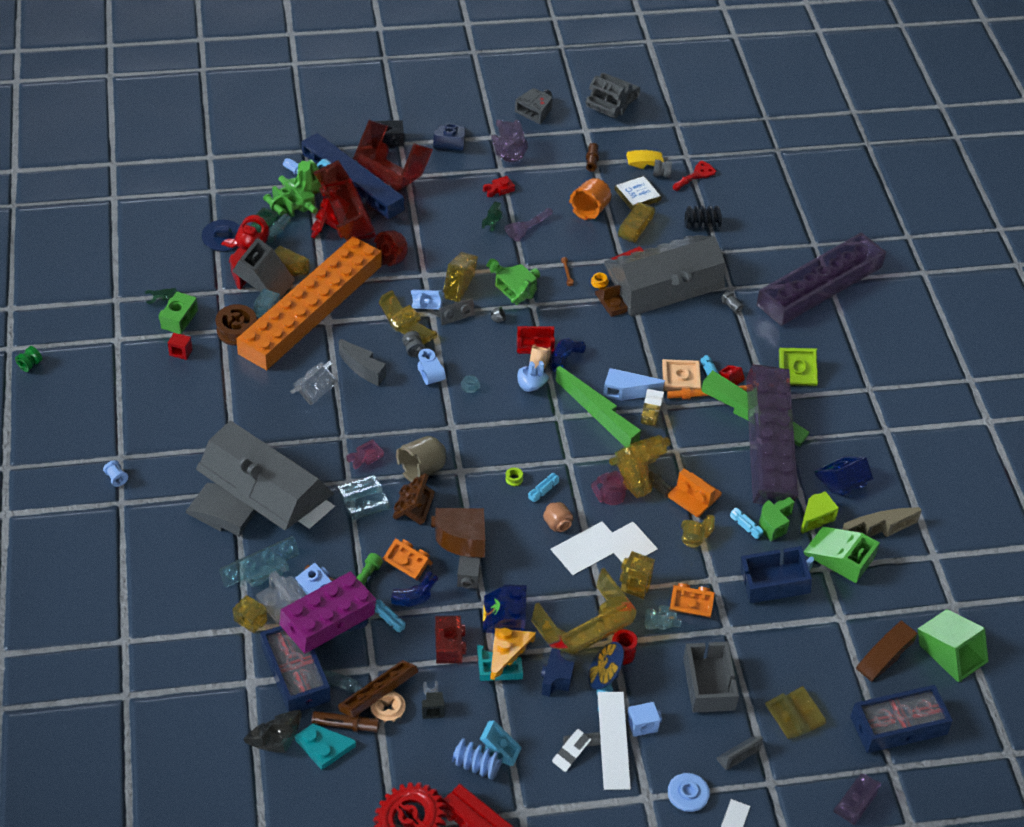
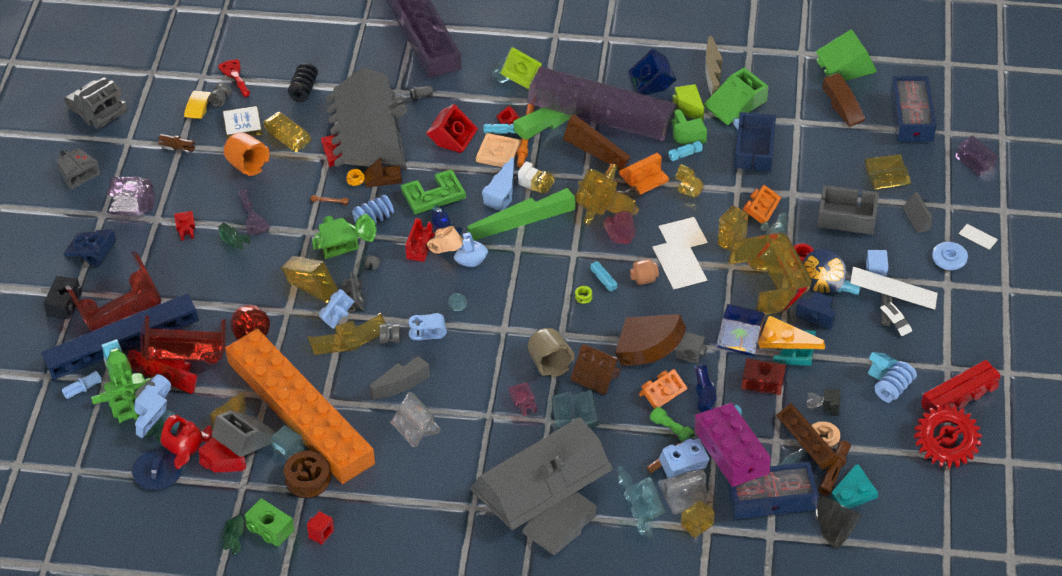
camera: 70 degrees left, 0 degrees up
(275, 206) = (150, 403): none -> light blue plate
(555, 299) = (374, 209): none -> light blue piece
(591, 333) = (447, 192): none -> bright green plate
(689, 334) = (452, 129): none -> red slope
(717, 436) = (589, 140): none -> reddish brown wing

